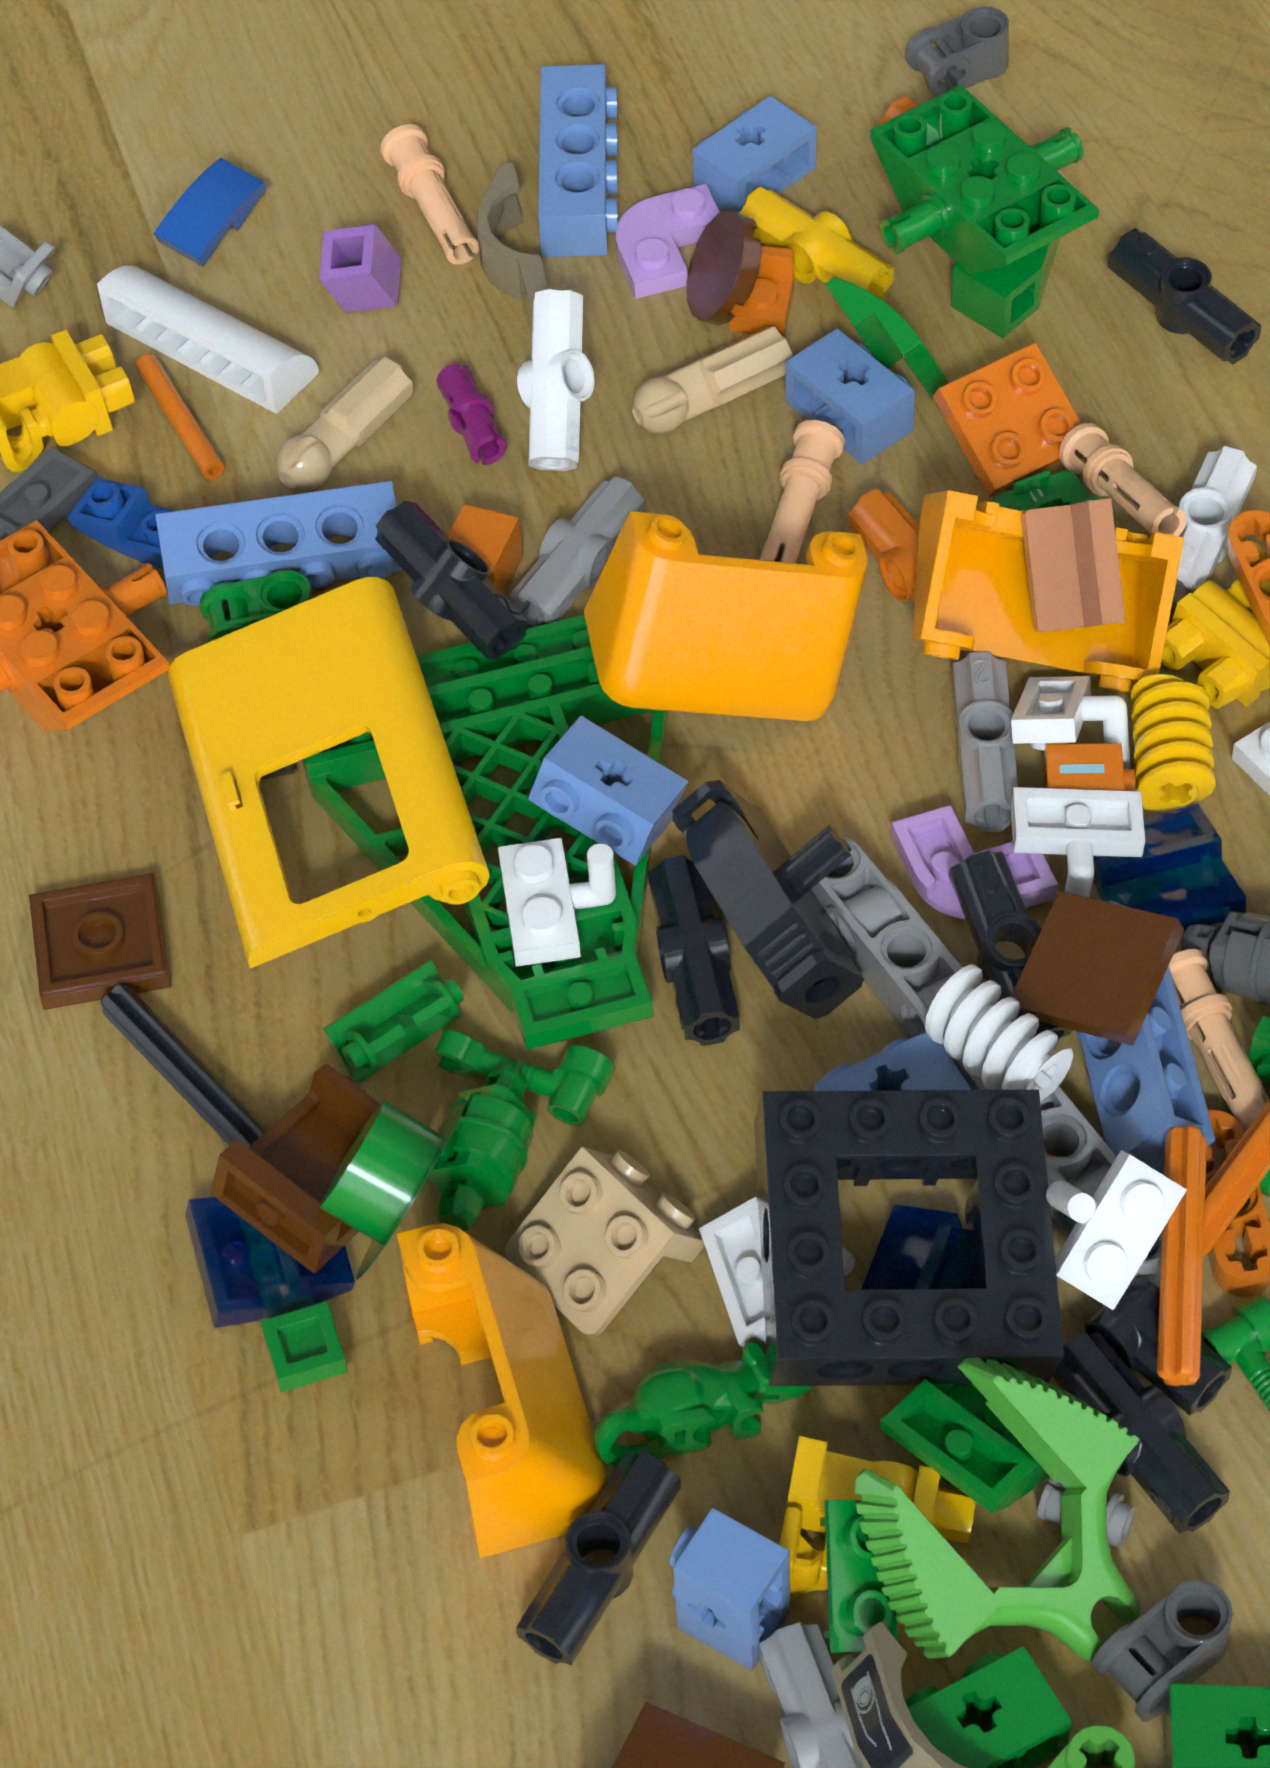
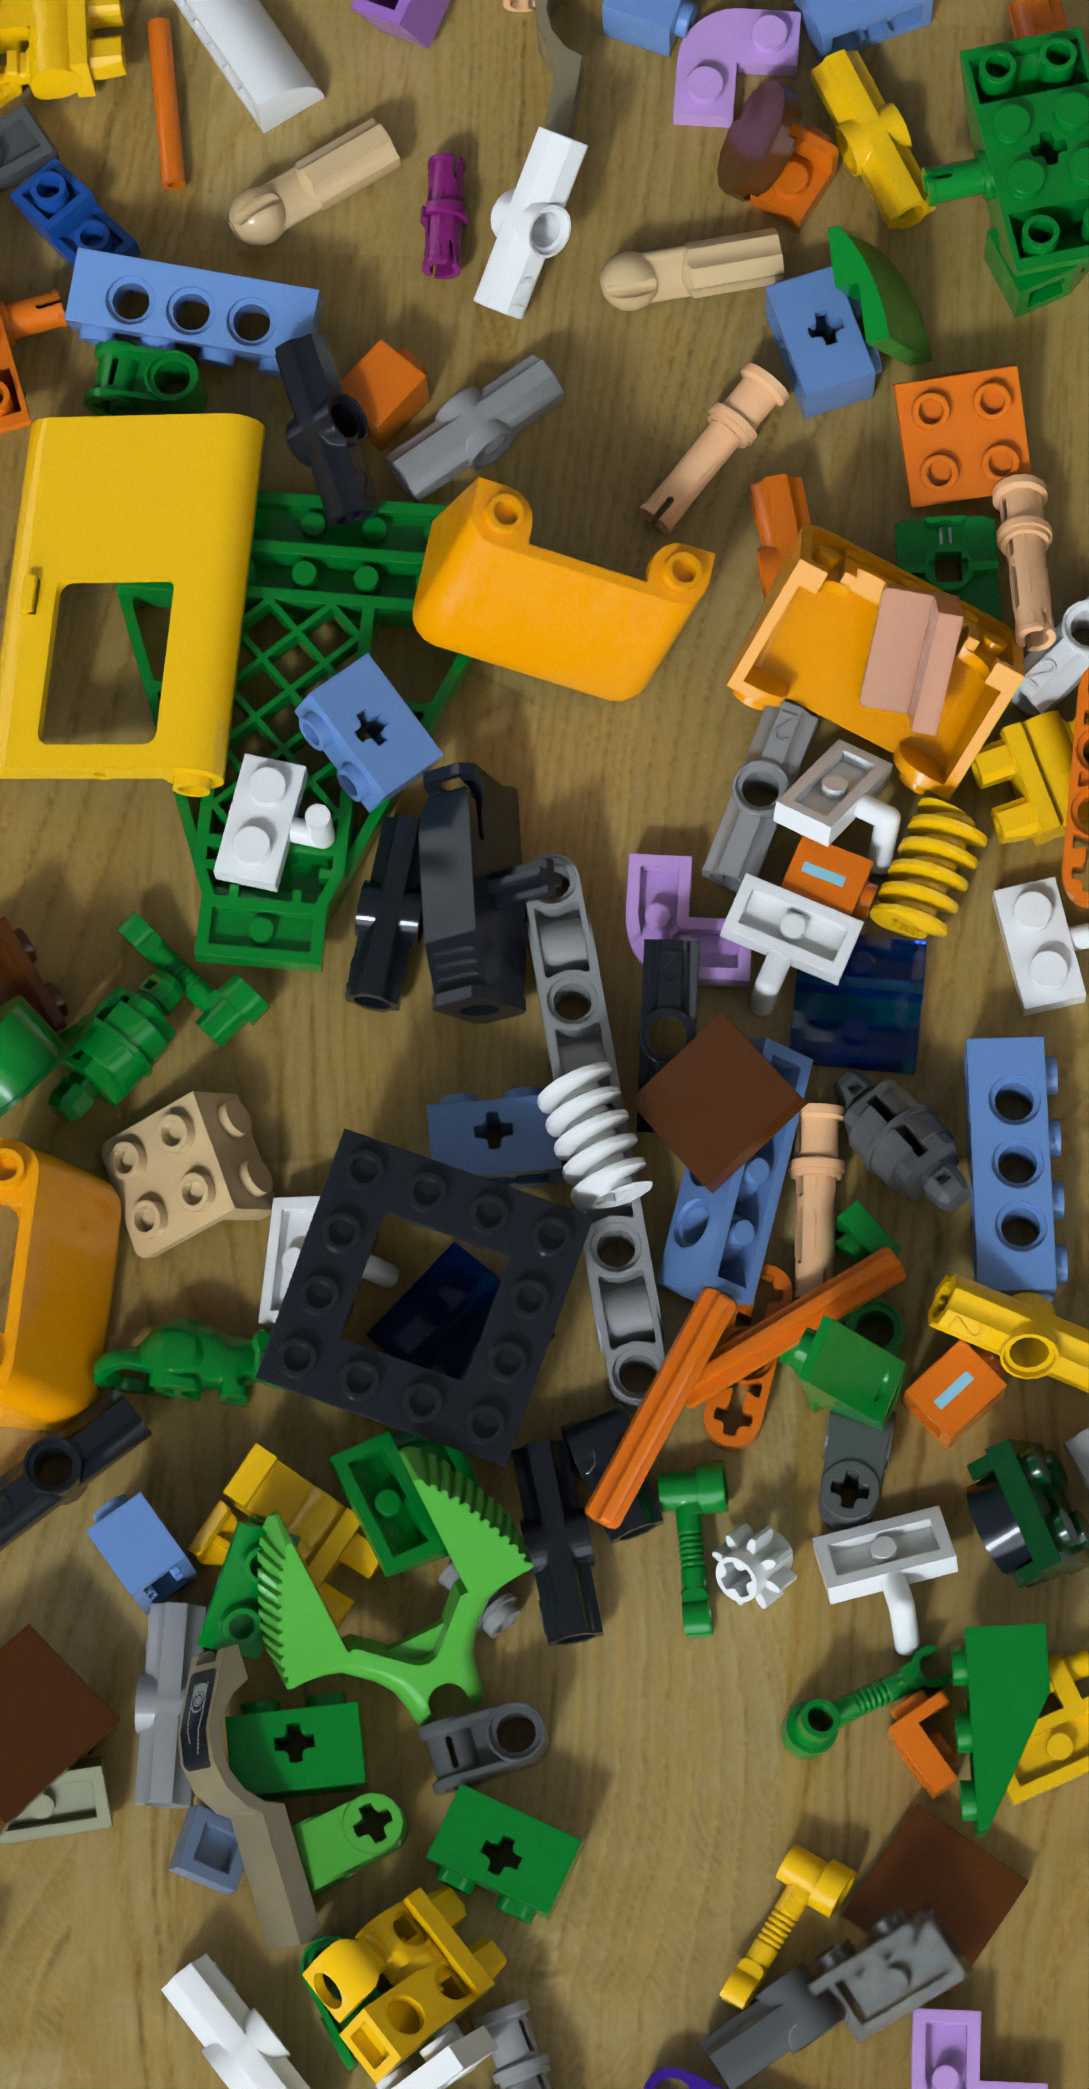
camera: 25 degrees right, 20 degrees up
(394, 1020) = (94, 880): green hinge -> none
(1113, 1226) = (605, 1367): white plate -> none

